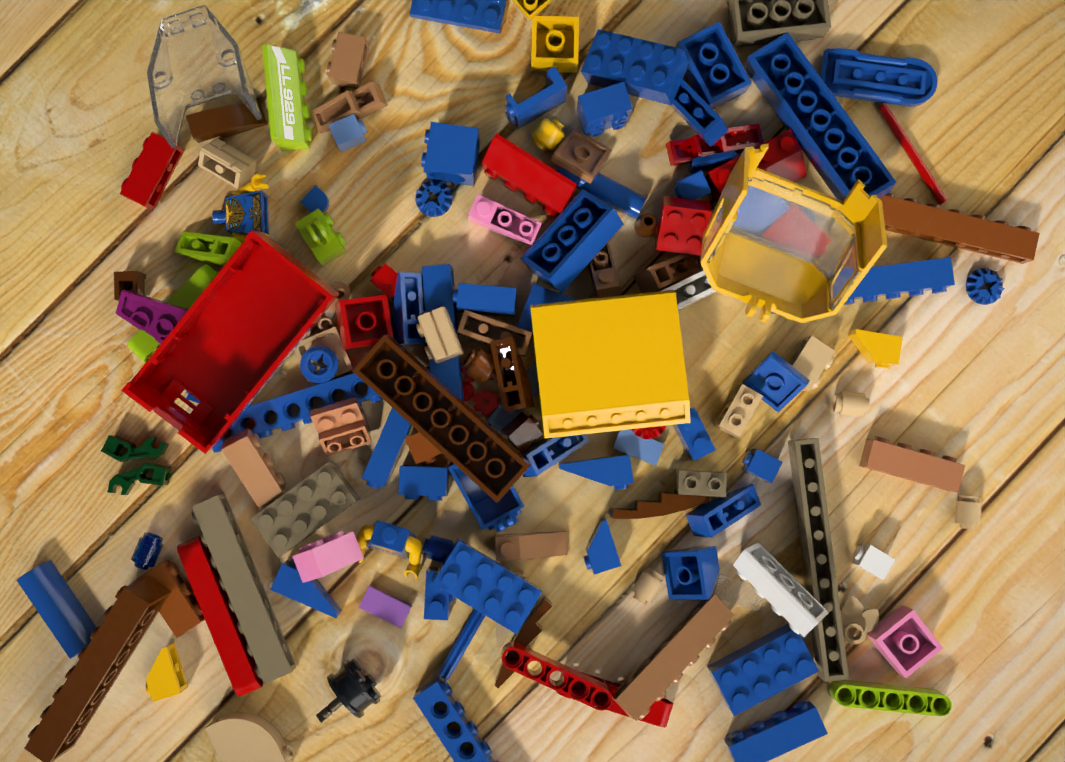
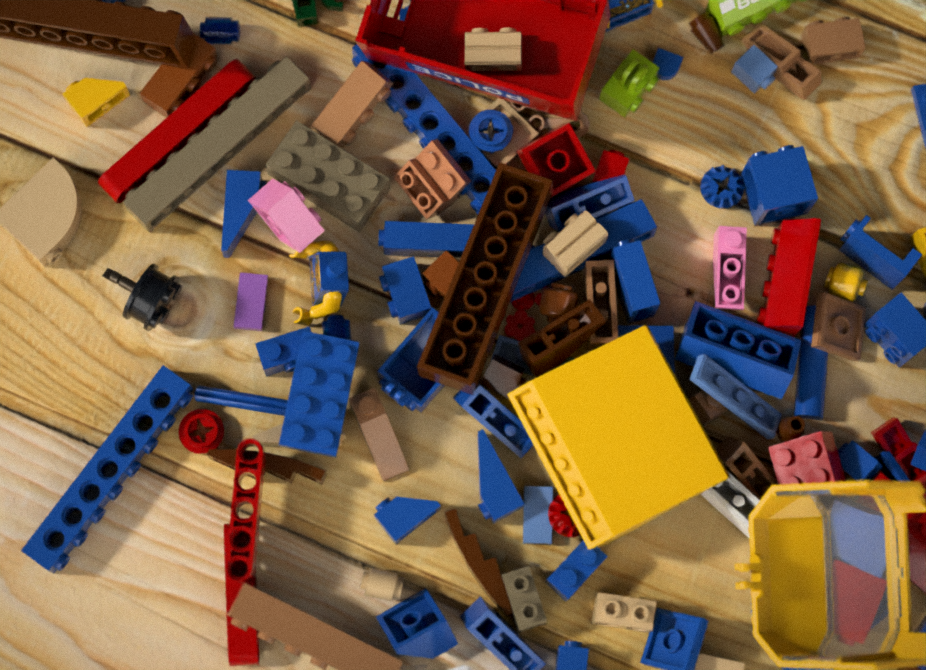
camera: 70 degrees right, 10 degrees down
(255, 339) = (493, 50): none -> tan brick
(302, 157) = (706, 32): none -> reddish brown cone
(466, 689) = (190, 425): none -> red gear
(608, 258) = (735, 396): none -> medium blue tile

